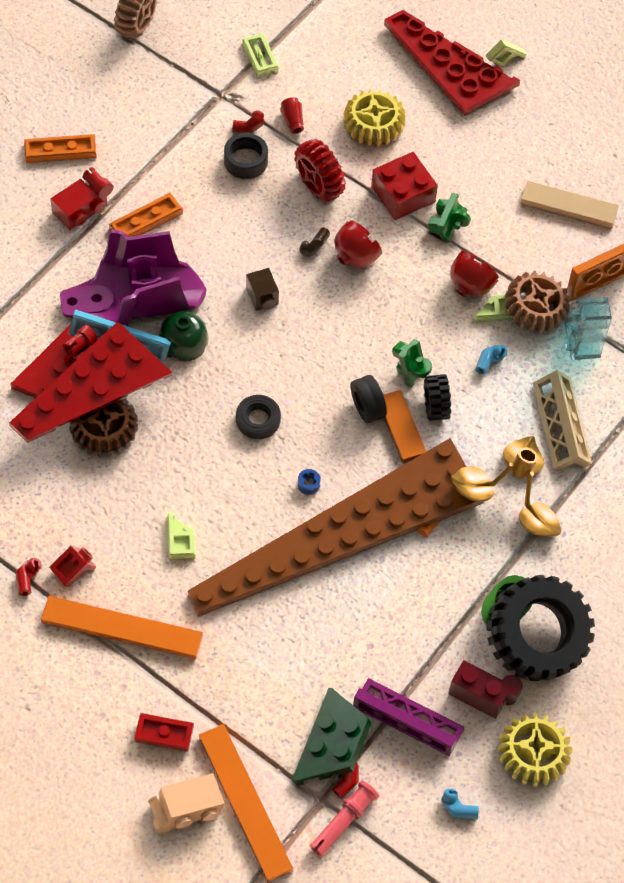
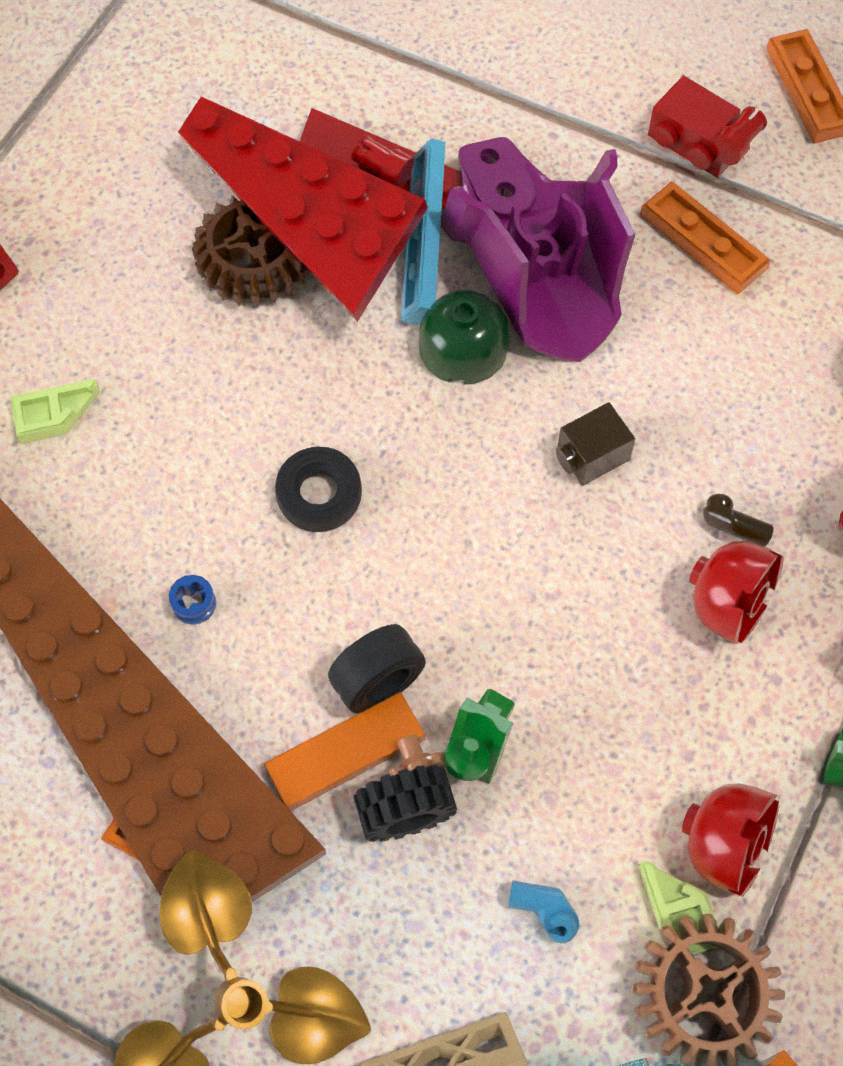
camera: 85 degrees right, 5 degrees up
(416, 393) = (414, 756): none -> nougat plant

